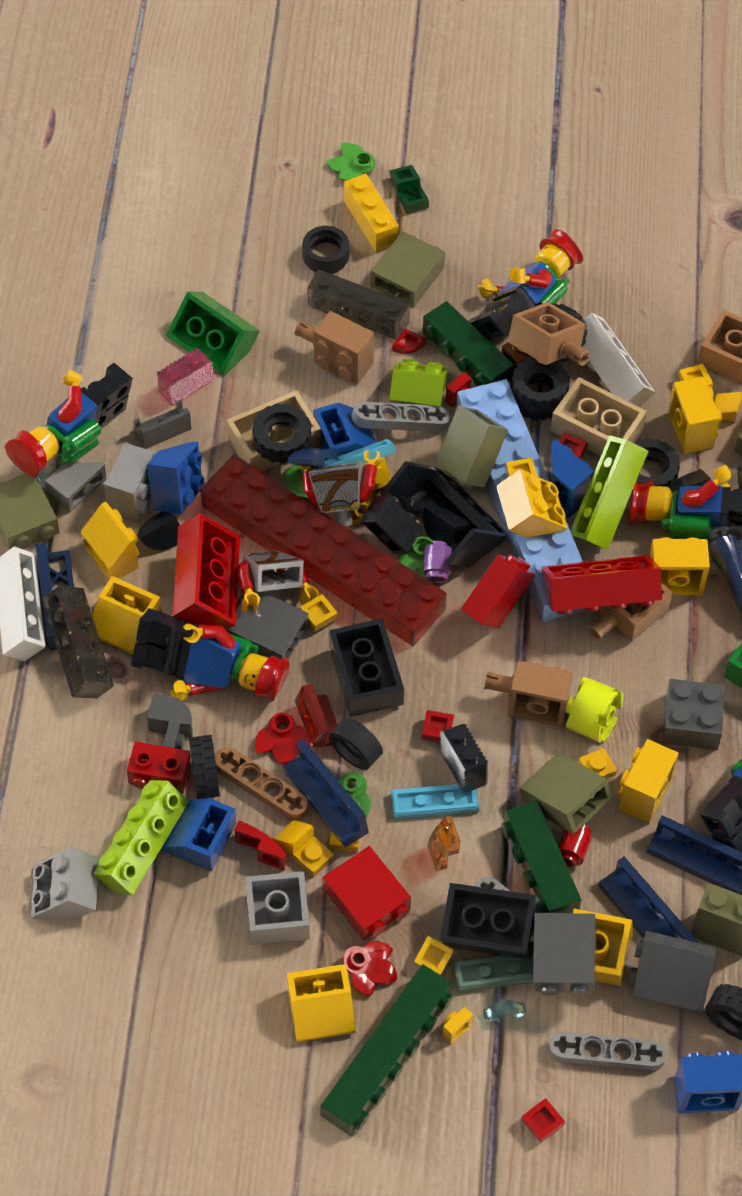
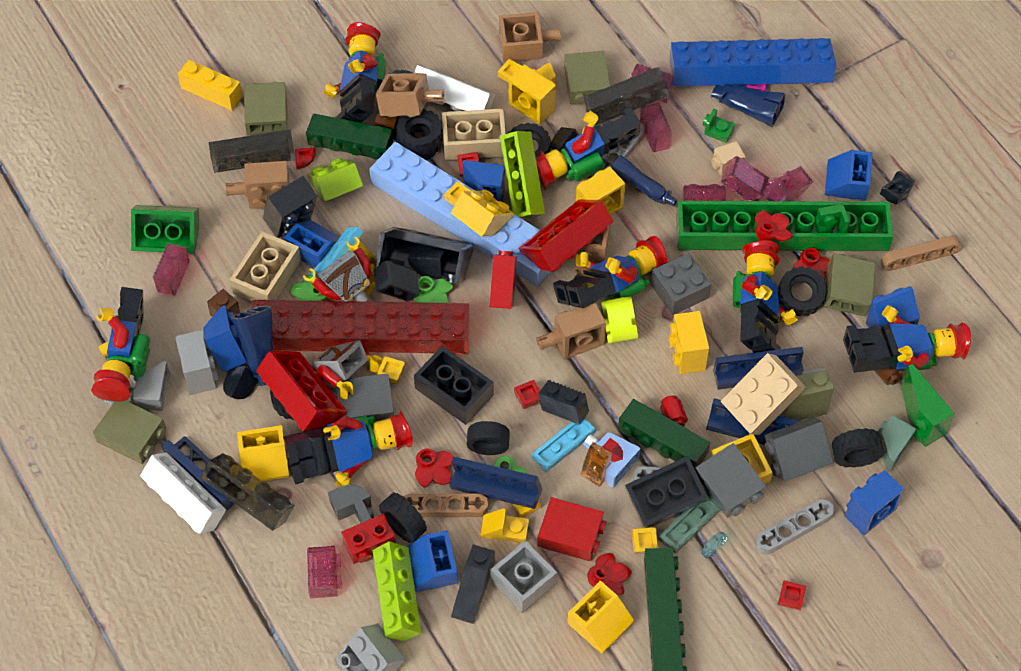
camera: 35 degrees left, 0 degrees up
(89, 770) = (323, 572): none -> clear pink brick
(110, 542) = (214, 411): yellow slope -> none
(163, 426) = (181, 312): dark grey hinge -> none
(204, 487) = (256, 335): none -> dark blue piece
(208, 444) = (221, 299): none -> reddish brown brick
(224, 881) = (473, 583): none -> black slope
(267, 849) = (464, 542): red slope -> none
(277, 415) = (282, 279): black tyre -> none
(313, 456) = (312, 267): dark blue slope -> none
(315, 715) = (445, 438): clear red panel -> none
(328, 235) = (195, 115): black tyre -> none
(342, 379) = (289, 206): none -> black brick
(352, 162) = (167, 58): bright green plate -> none
(370, 416) = (323, 218): light grey beam -> none
(409, 189) = (219, 54): dark green slope -> none
(435, 562) = (445, 287): medium lavender brick -> none
(456, 1024) = (692, 572): yellow plate -> none
(460, 383) = (365, 165): red plate -> none
(471, 447) = (410, 198): olive brick -> none
(477, 851) = (623, 456): none -> light blue torso
(567, 792) = (645, 380): olive brick -> none
(599, 763) = (646, 355): yellow plate -> none
(622, 660) = (613, 277): none -> piece
(670, 884) = (763, 394): none -> tan brick

